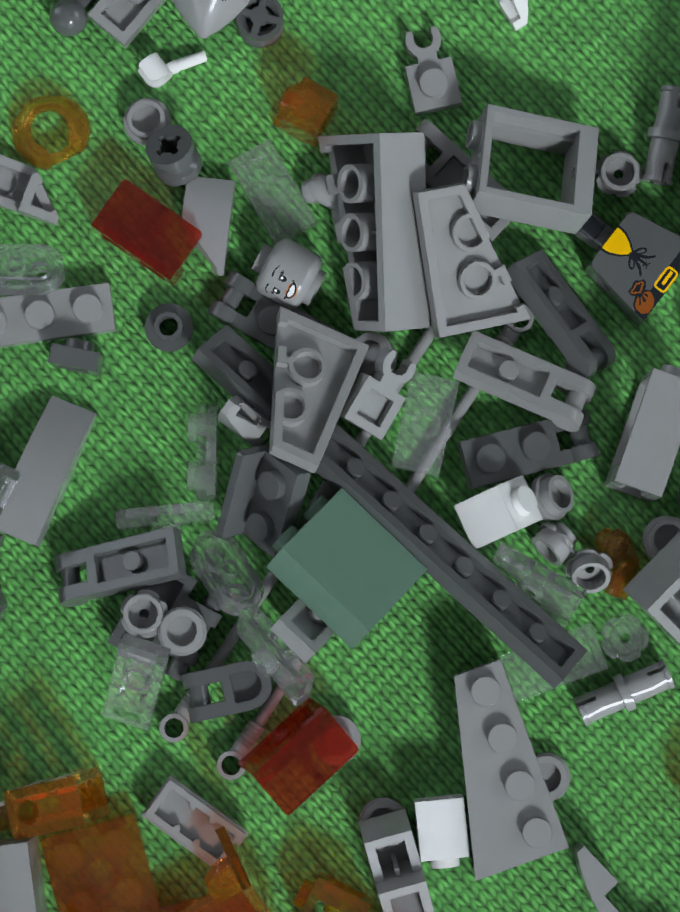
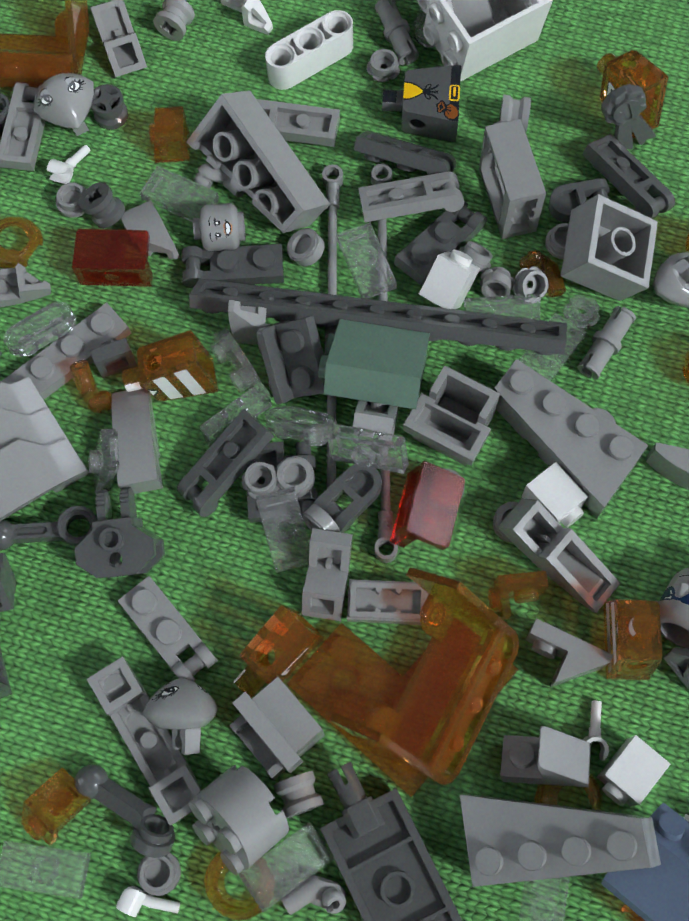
camera: 30 degrees left, 15 degrees down
(28, 378) = (87, 387): none -> clear orange arm
(140, 422) = (173, 369): none -> clear orange torso
(148, 758) = (326, 574): none -> light grey slope
(175, 702) = (317, 518): none -> light grey tile
(179, 338) = (166, 315): dark grey plate -> none
(309, 386) = (277, 273): light grey wing -> none
(374, 399) = (322, 261): light grey plate -> none
(390, 678) = (454, 416): none -> light grey plate
(431, 80) = (234, 78): light grey plate -> none
(461, 269) = (326, 156): light grey wing -> none
(539, 132) = (326, 64): light grey window -> none
(563, 84) = (309, 49): none -> white beam

